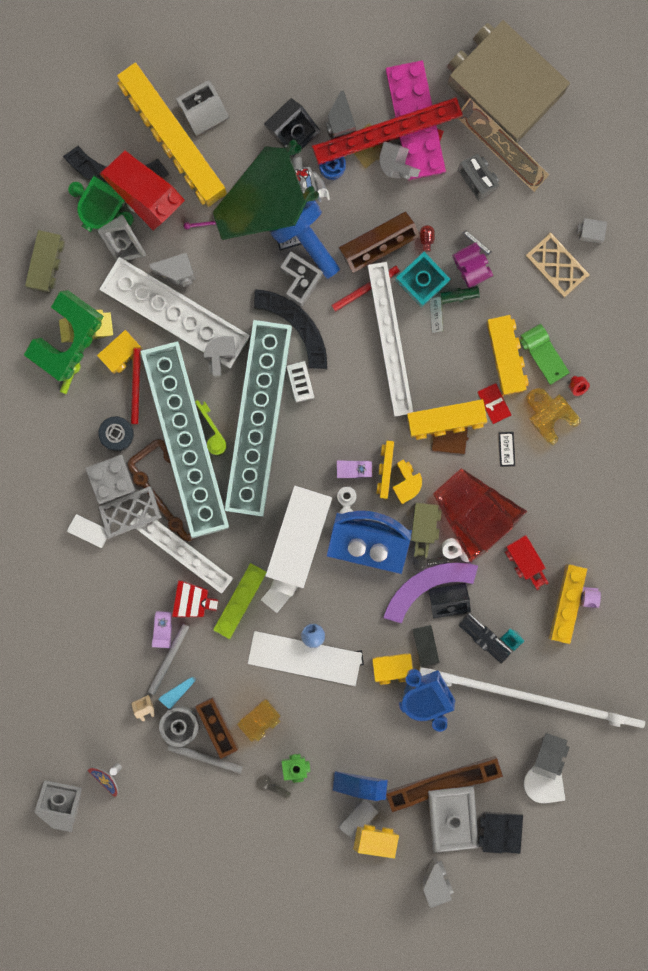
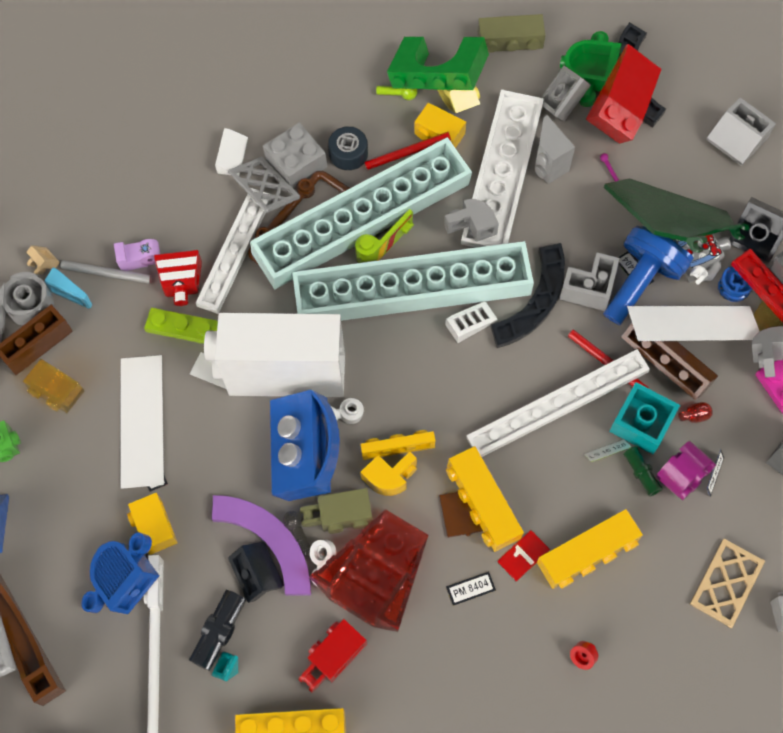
camera: 75 degrees right, 20 degrees down
(172, 135) = (696, 108): yellow brick -> none
(313, 635) = (169, 417): medium blue piece -> none
(354, 469) = (386, 406): lavender leg -> none
(359, 213) = (693, 323): none -> white sticker
(426, 645) = (191, 558): pearl dark grey tile -> none
(543, 353) = (609, 597): bright green door -> none
(548, 412) = (536, 626): clear yellow piece -> none

